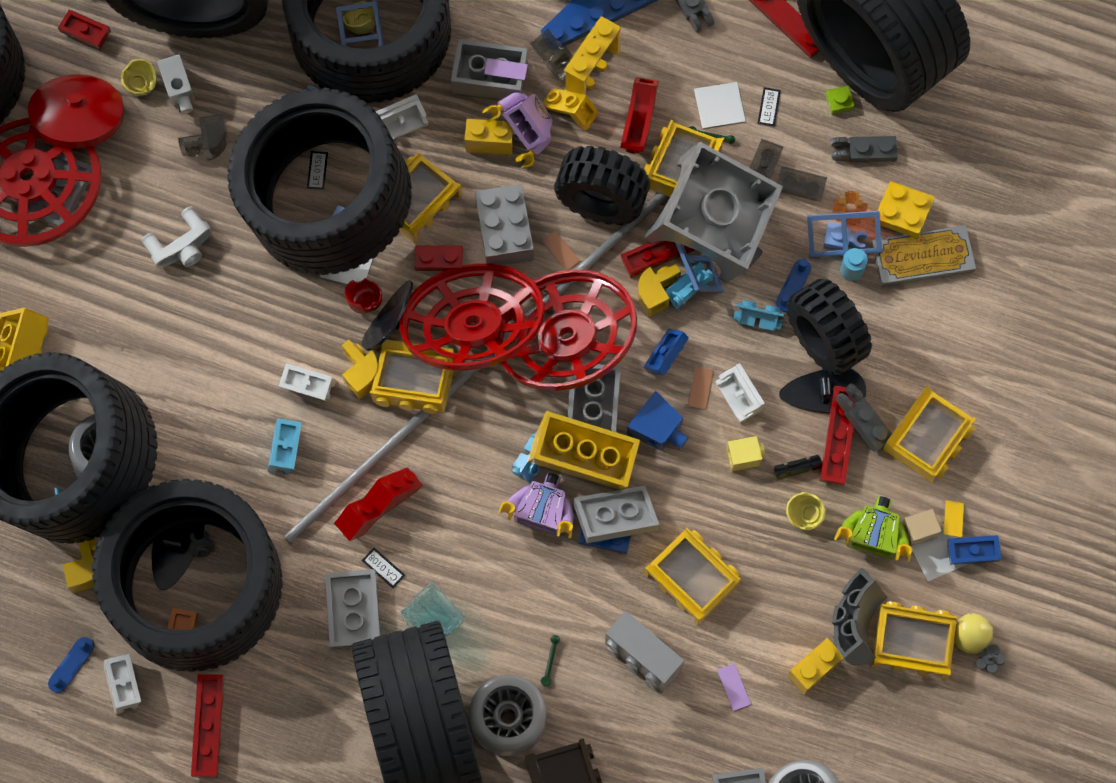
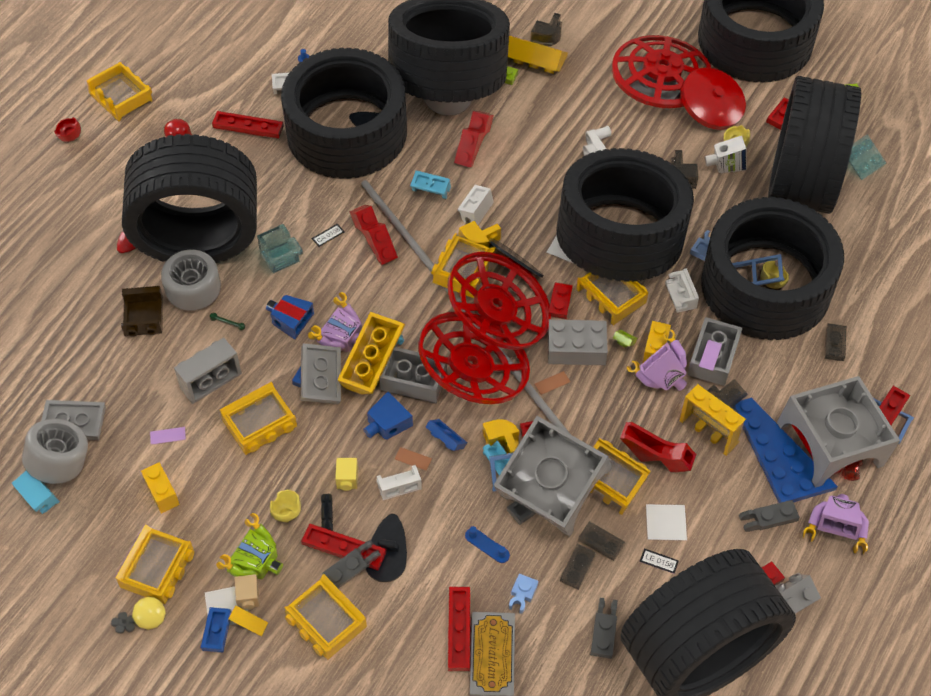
camera: 100 degrees right, 15 degrees down
(182, 619) = (322, 117): orange plate -> none
(189, 404) = (472, 138): none -> red arch
(352, 607) = (301, 210): light grey plate -> none
(363, 296) = (536, 244): red hair -> none
(485, 173) = (624, 338): none -> lime plate
(529, 578) = (290, 314): none -> blue torso
(573, 104) = (672, 408): yellow bracket -> none
(602, 185) = (591, 399): black tyre -> none
(730, 139) = (643, 496): dark green hinge -> none
(767, 316) = (468, 502): medium azure hinge -> none
(829, 326) = (430, 540): black tyre -> none
(843, 216) = (532, 583): medium blue window -> none
(850, 197) = (544, 595): clear orange brick -> none
(853, 264) = (492, 589): medium azure brick -> none
(853, 618) = (186, 522): dark grey brick -> none
(904, 209) = (538, 645): yellow plate -> none
(904, 293) = (459, 629): none -> red plate

